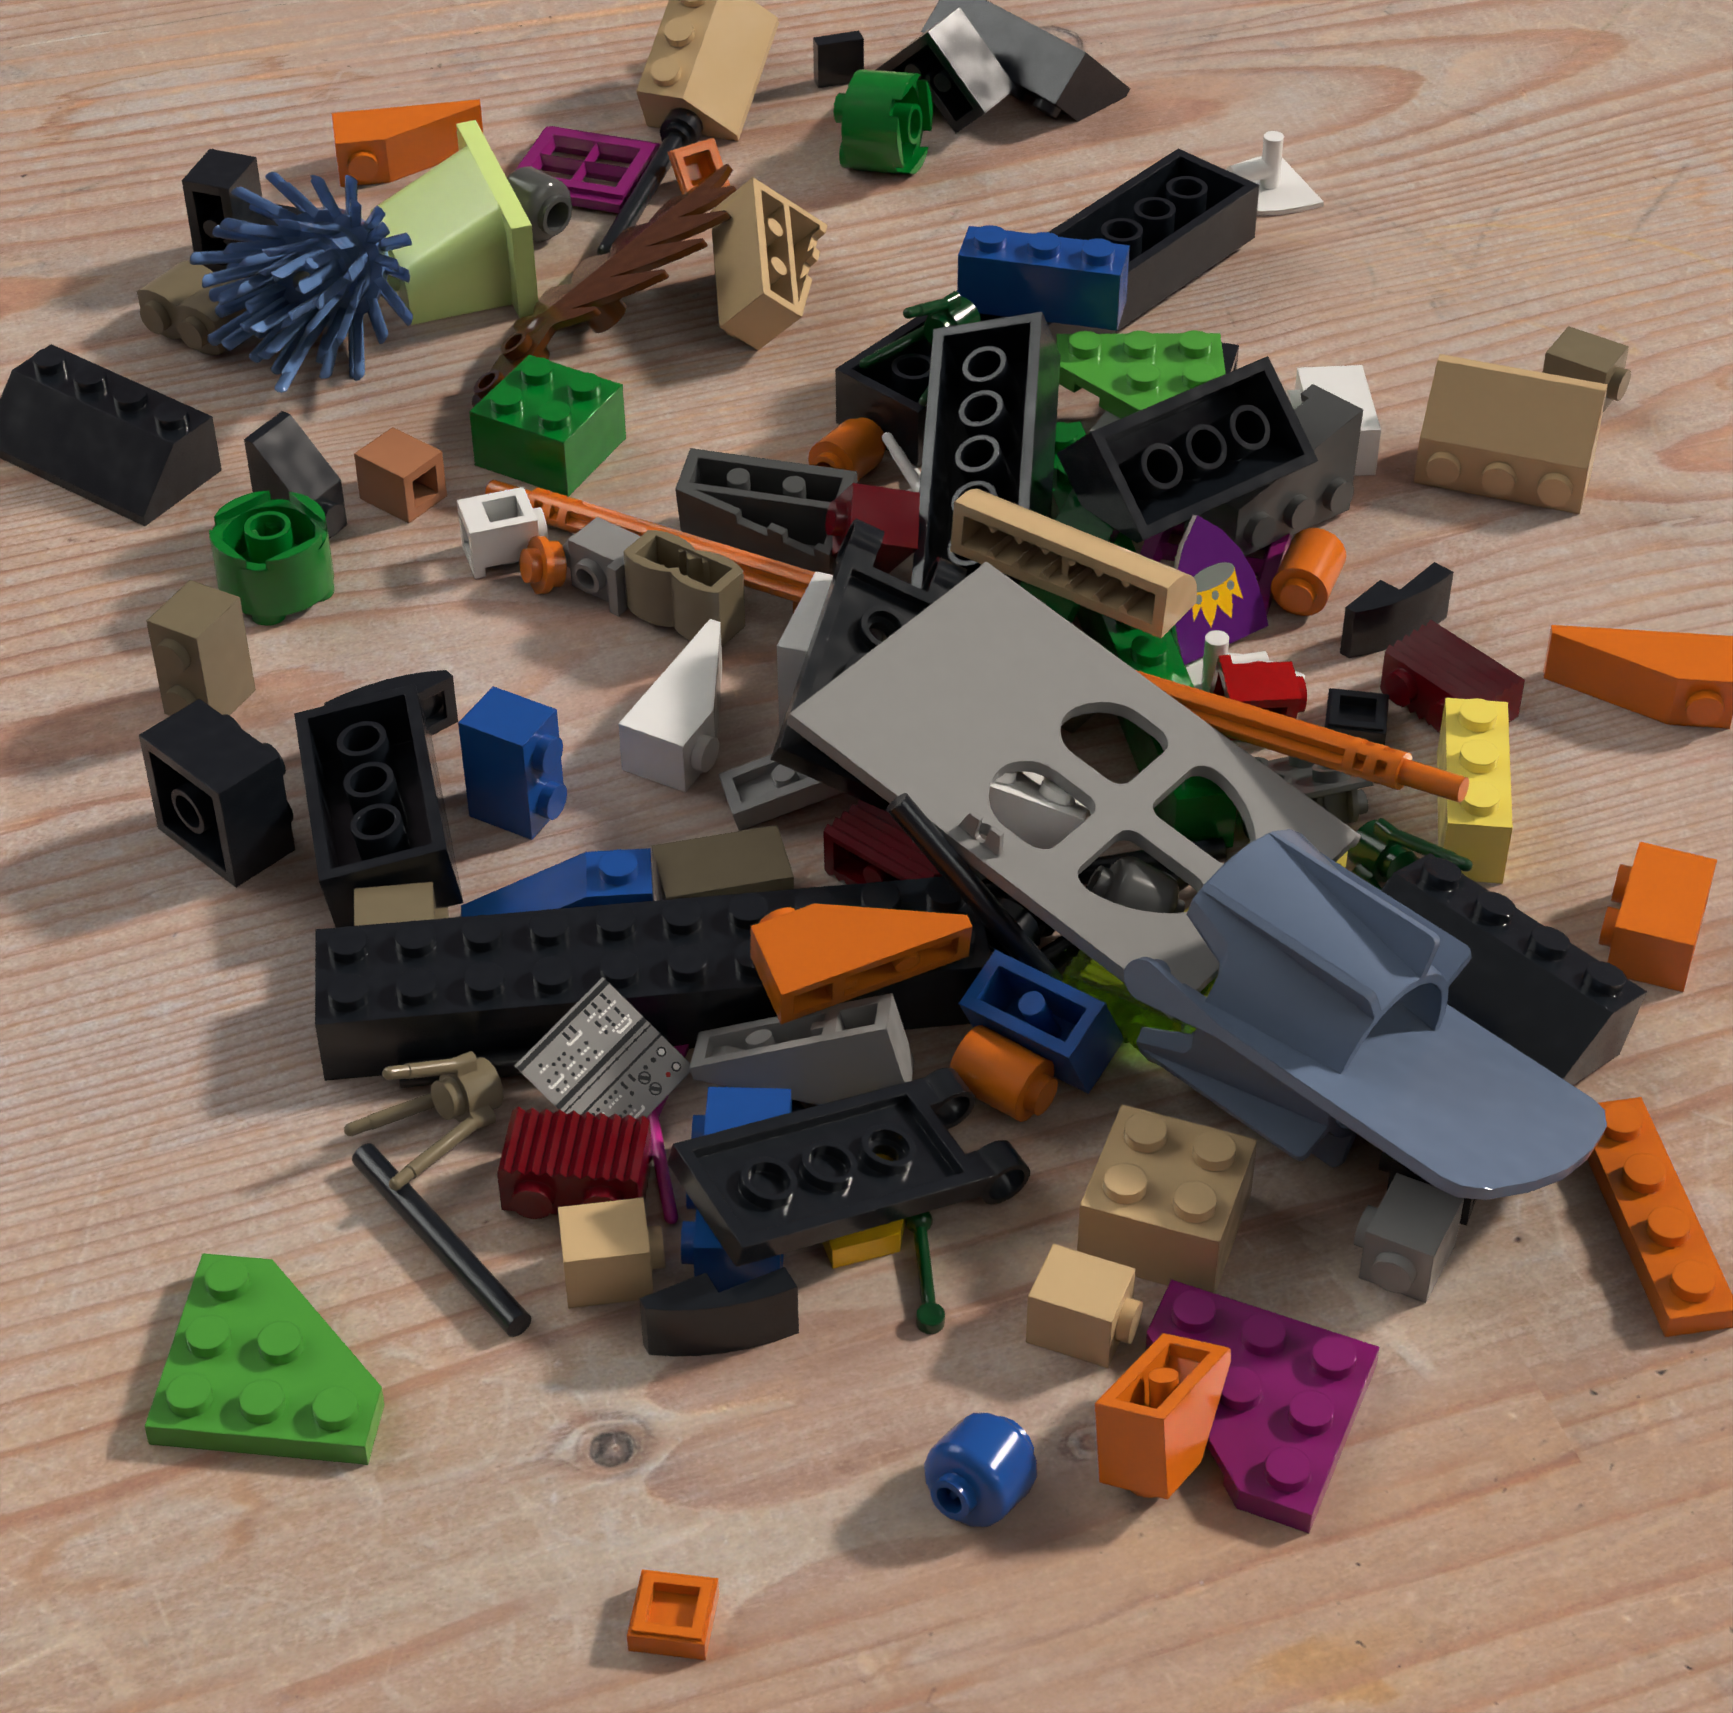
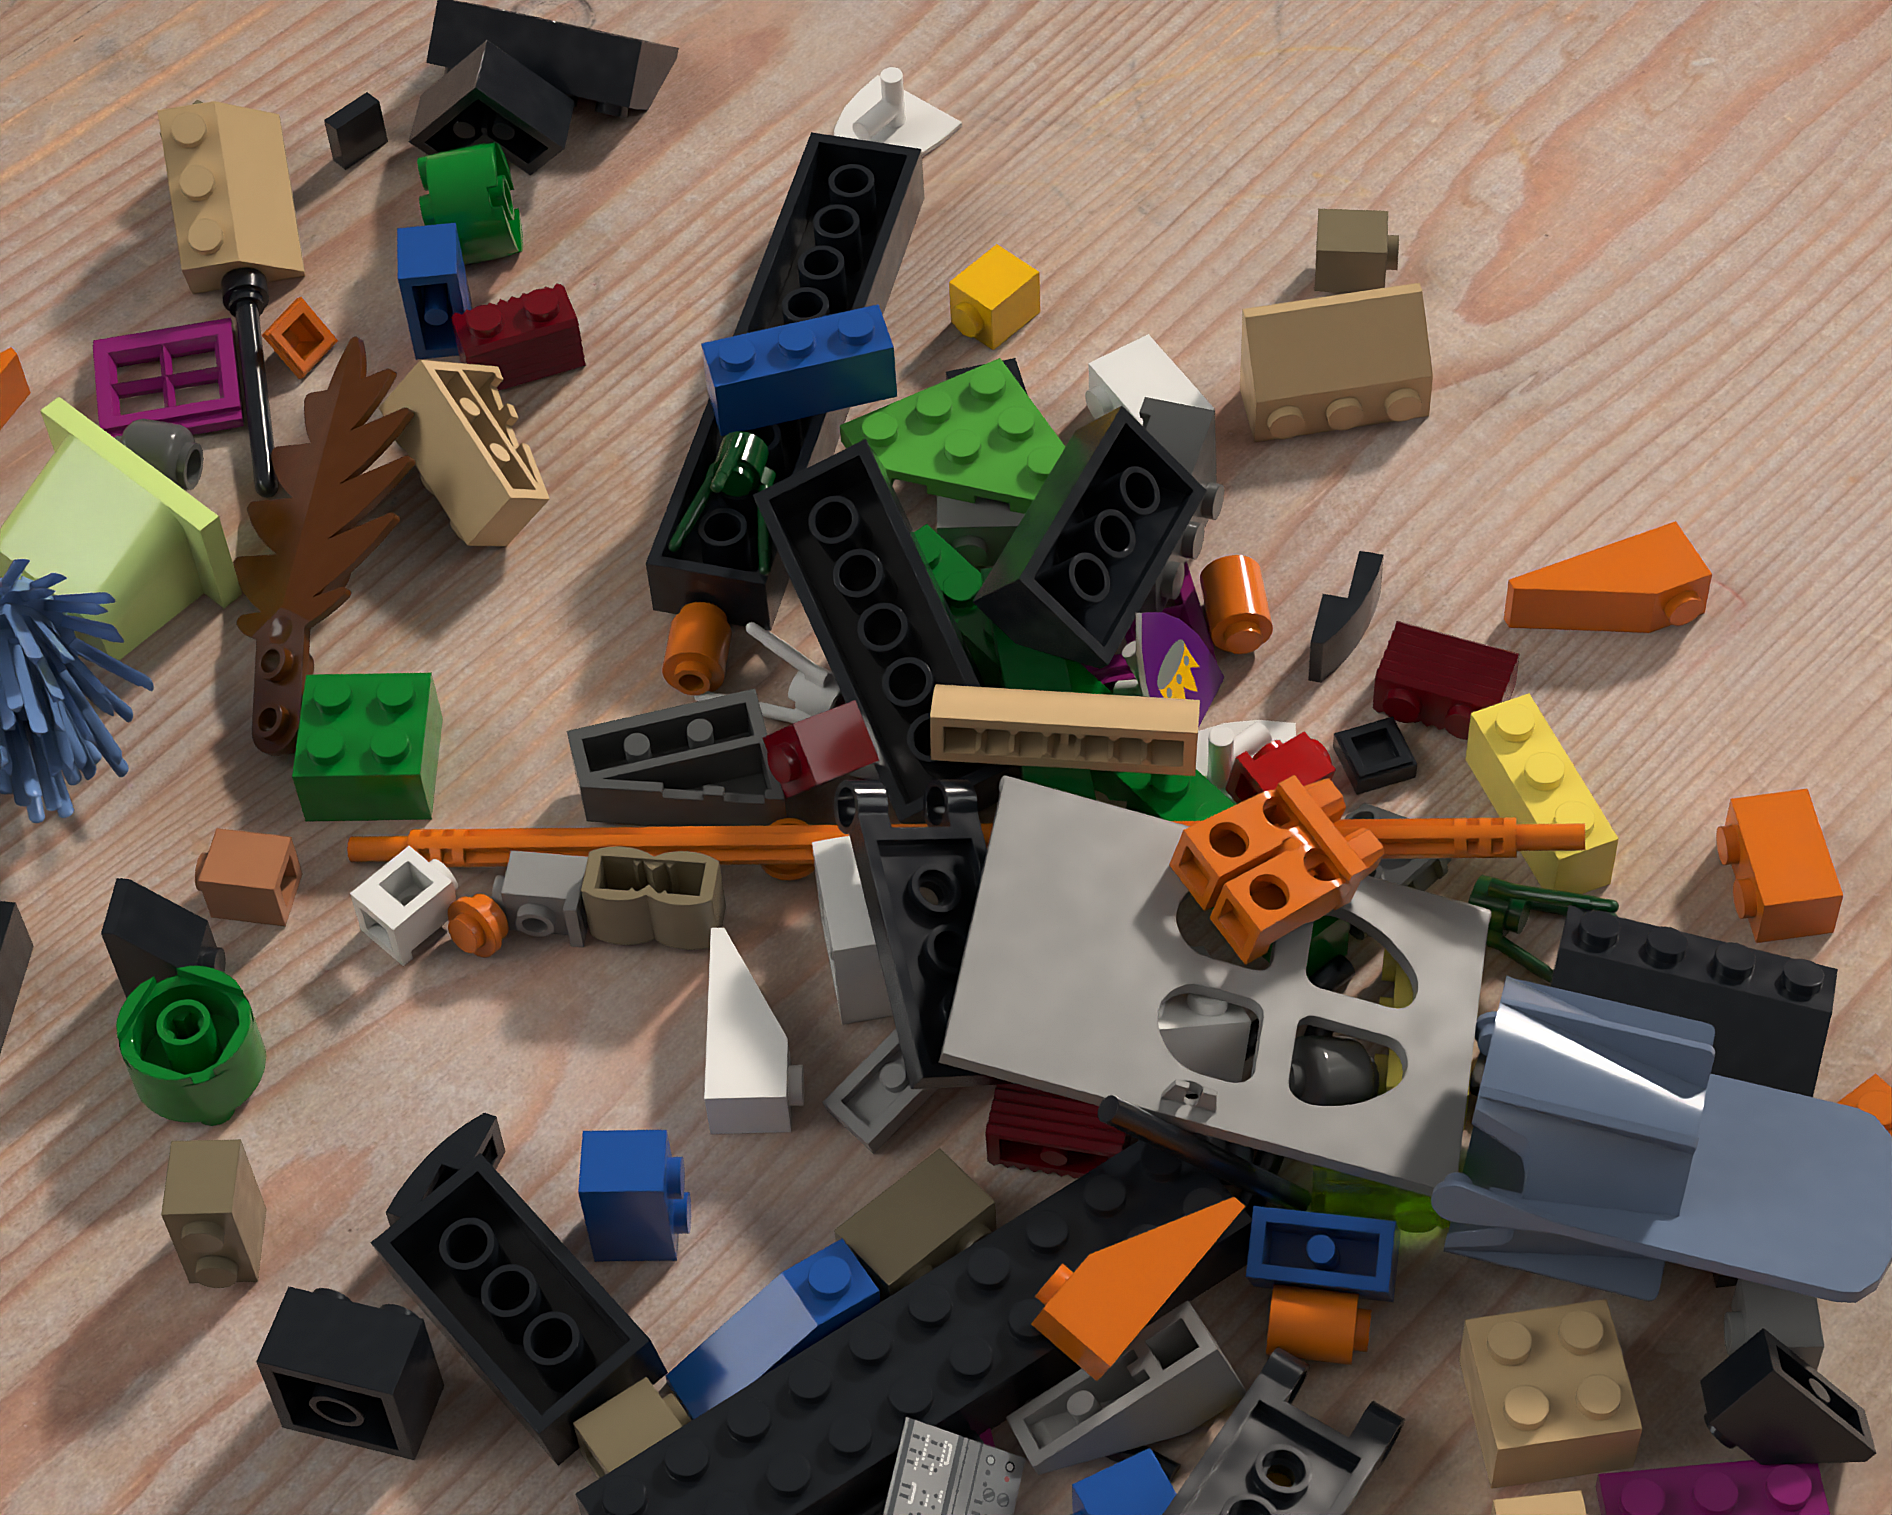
camera: 25 degrees left, 10 degrees up
(815, 158) = (432, 286): none -> blue brick
(862, 216) = (523, 336): none -> dark red brick
(1173, 703) = (1274, 863): none -> orange hips
(1258, 311) = (994, 297): none -> yellow brick
(1369, 1293) = (1782, 1408): none -> black slope

